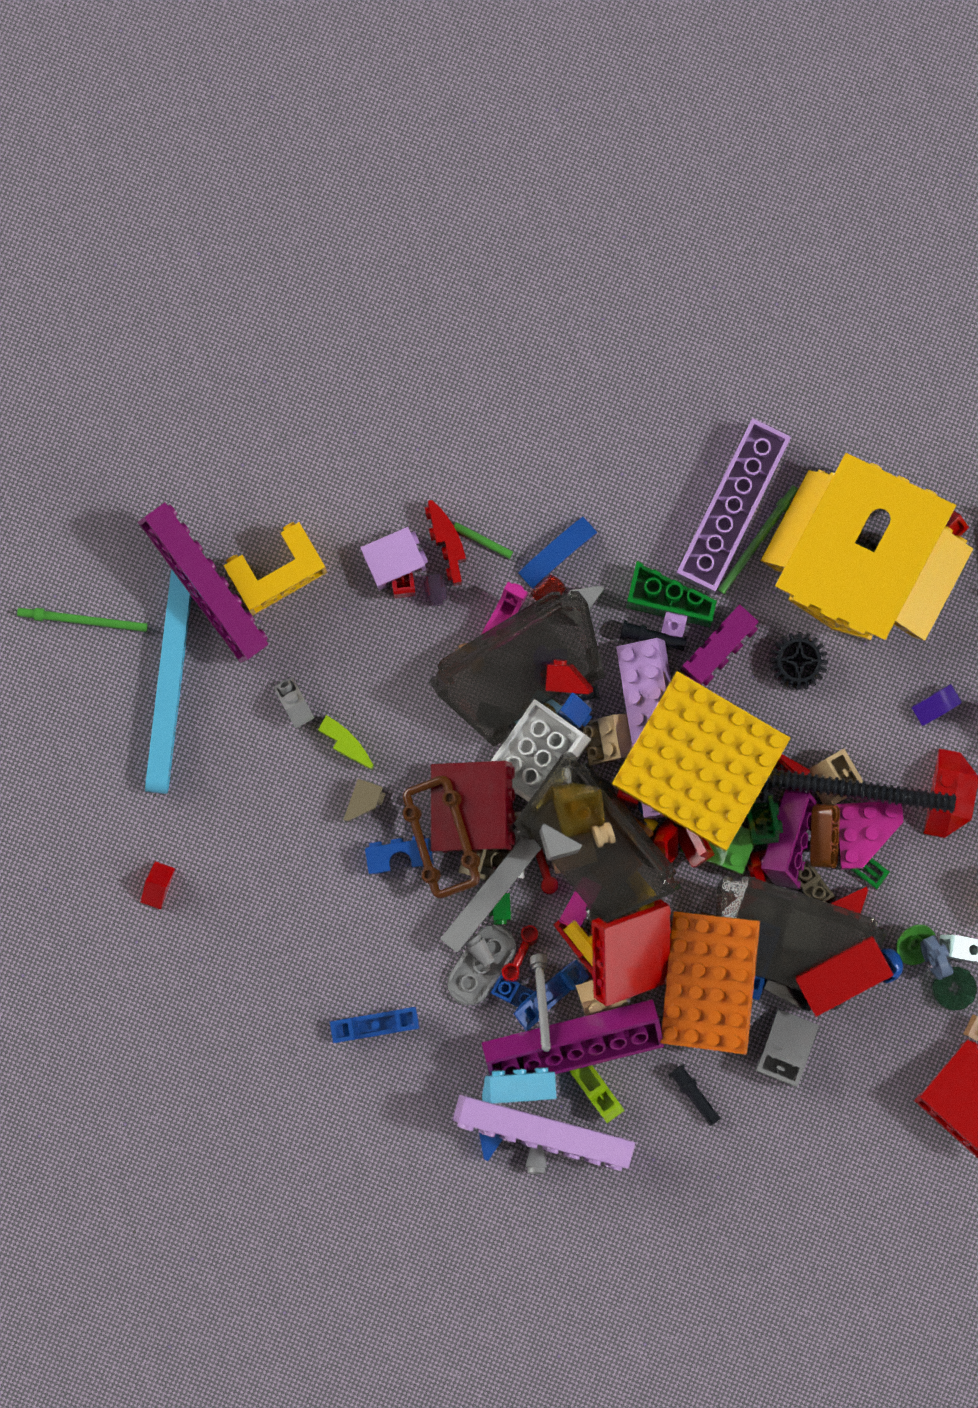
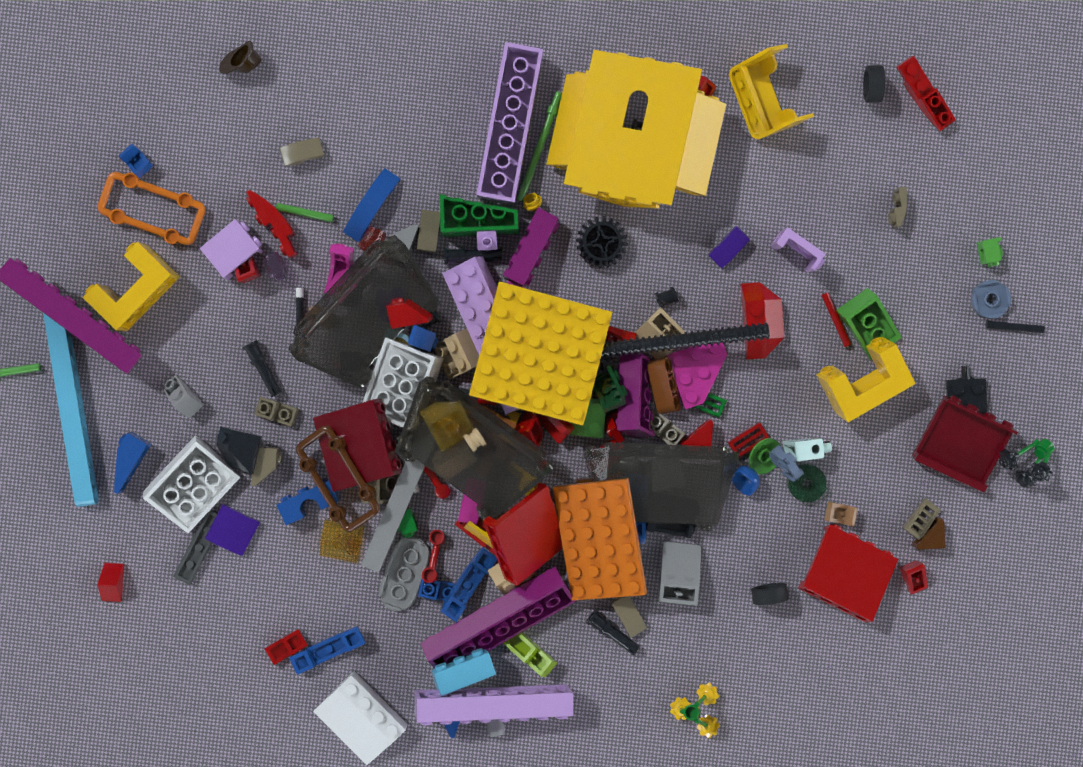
camera: 15 degrees left, 5 degrees up
(218, 751) = (129, 456): none -> blue slope
(264, 872) = (196, 551): none -> dark grey tile
(276, 801) = (190, 484): none -> white slope
(307, 863) = (232, 530): none -> dark purple slope
(317, 435) = (136, 160): none -> blue bracket
(328, 1009) = (286, 646): none -> red slope
(331, 525) = (170, 235): none -> orange bar
(341, 775) = (239, 448): none -> black slope
(345, 742) = (235, 418): lime slope -> none
(388, 687) = (258, 360): none -> black pin
(388, 1112) = (361, 718): none -> white slope
(391, 747) = (276, 411): none -> dark tan slope
(422, 910) = (339, 543): none -> clear yellow slope
(448, 640) = (299, 304): none -> black bar
(462, 358) = (241, 59): none -> dark brown piece
(479, 949) = (397, 562): light grey cone -> none
(498, 474) = (301, 151): none -> dark tan slope
(538, 963) = (452, 560): light grey piece -> none
(556, 844) = (436, 459): light grey slope -> none
(612, 597) = (428, 231): none -> dark tan slope
(718, 1079) = (628, 615): none -> dark tan slope
(734, 596) = (532, 202): none -> yellow plate
(760, 1200) = (685, 710): none -> yellow plant
(844, 976) = (712, 502): red tile -> none
(853, 741) = (666, 297): none -> black bush
(881, 1098) = (769, 594): none -> black tyre
(920, 917) = (743, 434): none -> red tile

